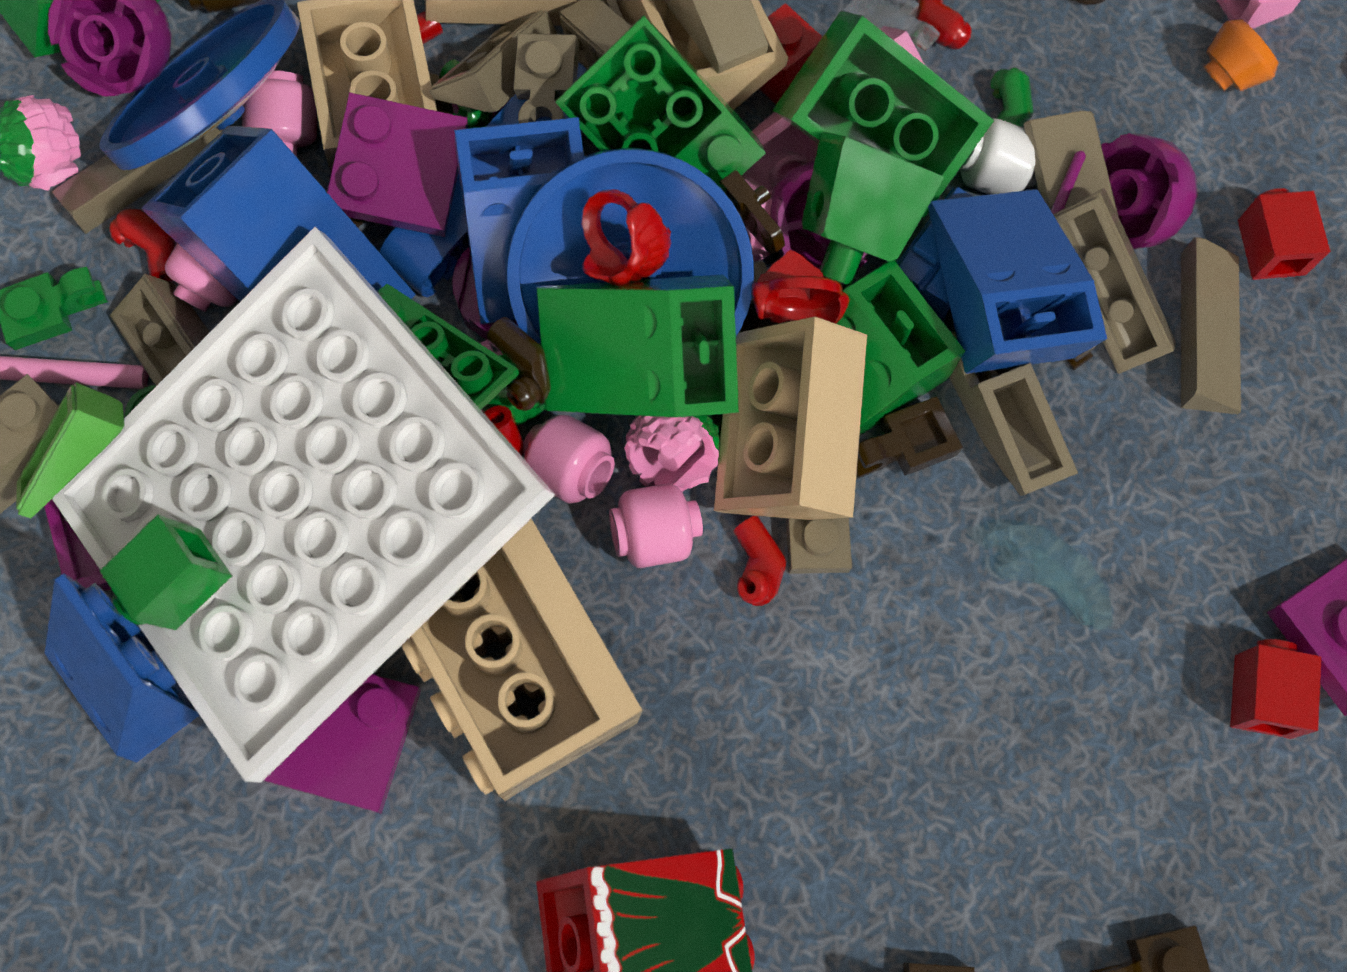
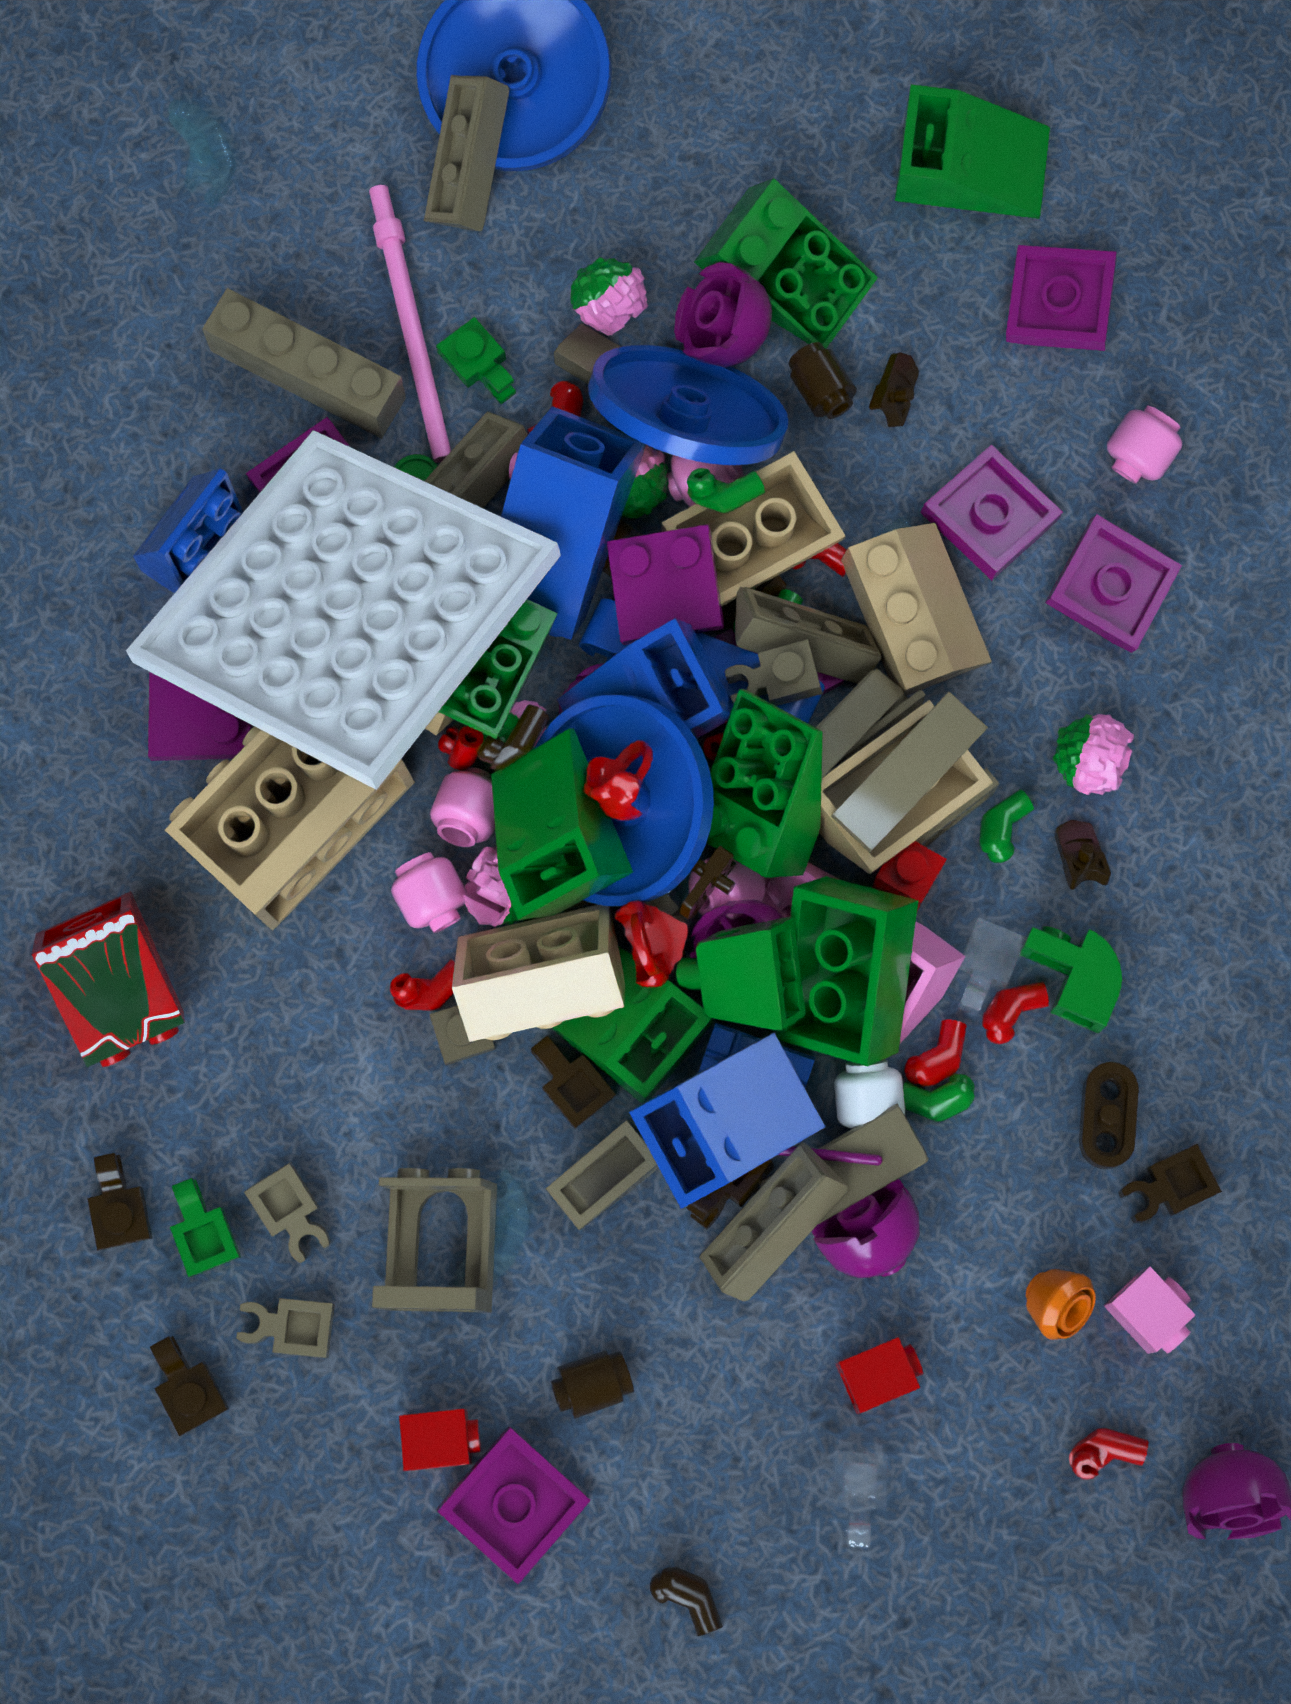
camera: 80 degrees right, 5 degrees up
(74, 437) = (355, 432): bright green slope -> none
(164, 574) = (257, 539): green brick -> none
(320, 77) = (721, 496): none -> green arm
(970, 84) = (941, 1060): none -> red arm
(974, 792) = (284, 1204): none -> dark tan plate
(986, 898) = (204, 1236): none -> green plate
(1119, 817) = (297, 1328): none -> dark tan plate
(1123, 647) = (407, 1197): none -> dark tan panel
(1210, 328) = (768, 1331): dark tan slope -> none
(1240, 511) = (592, 1383): none -> dark brown brick

